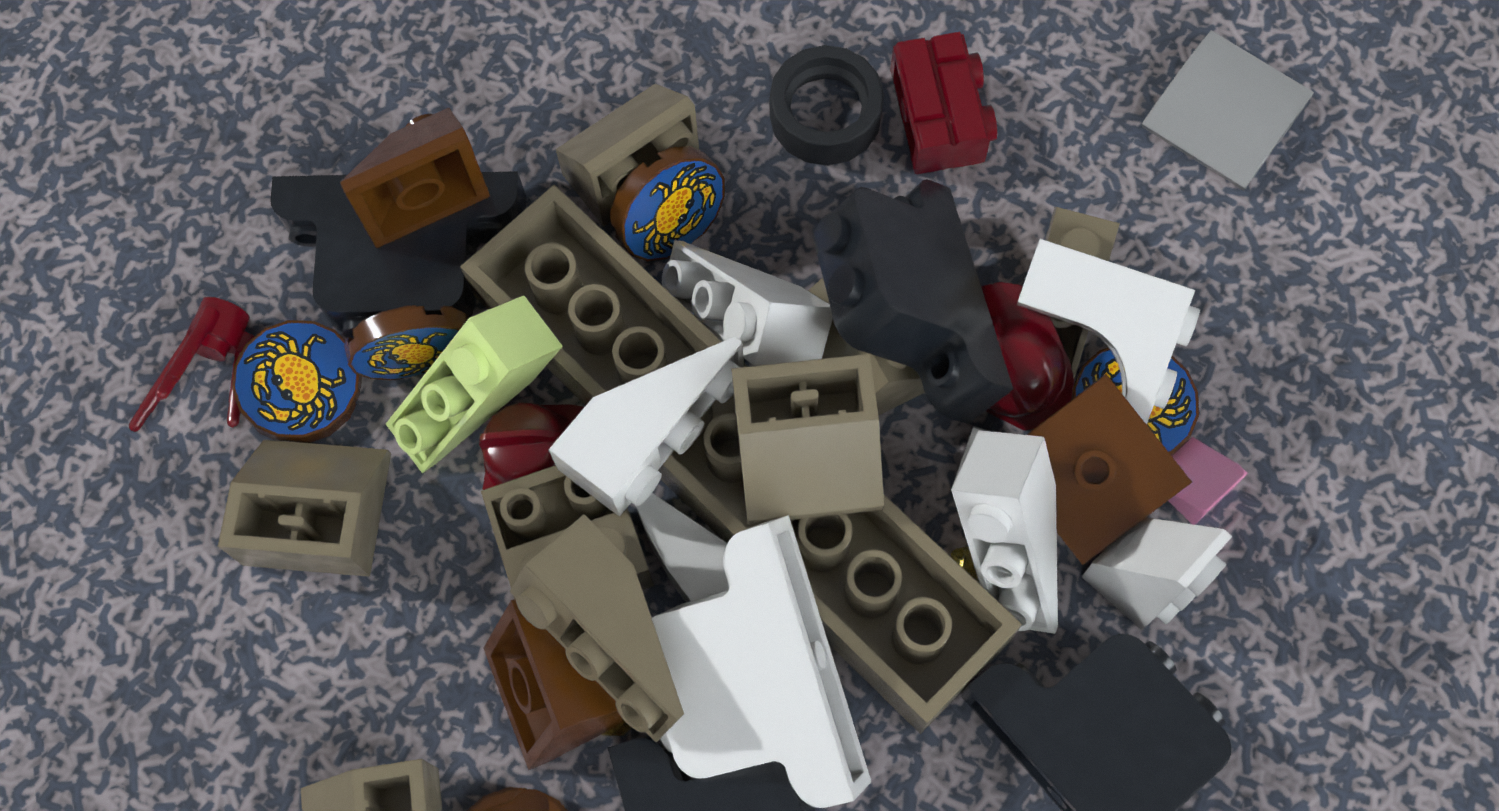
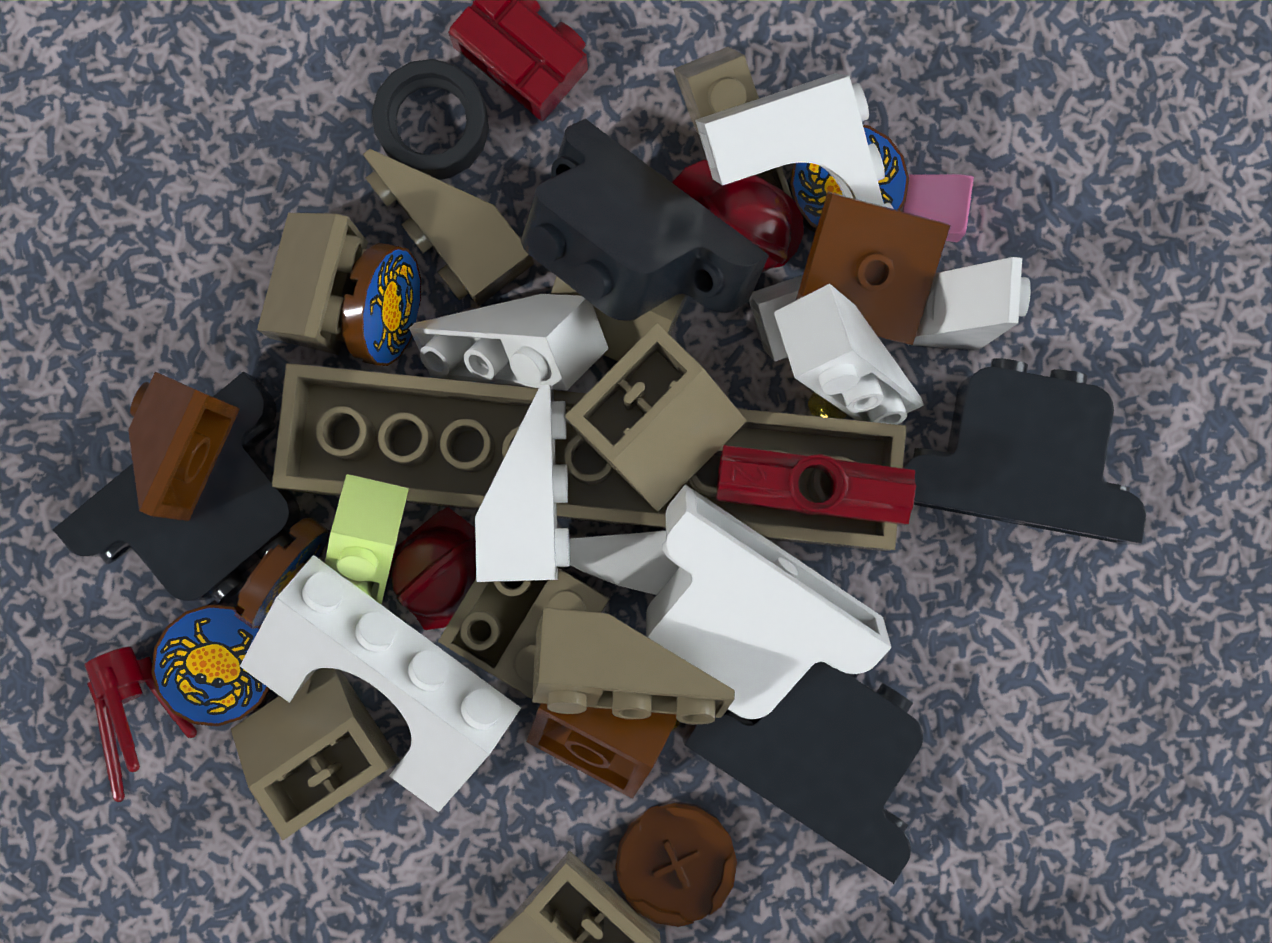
camera: 40 degrees left, 15 degrees up
(438, 556) = (335, 625): none -> white arch
(778, 195) = (464, 230): none -> dark tan slope
(932, 635) = (856, 488): none -> dark red piece

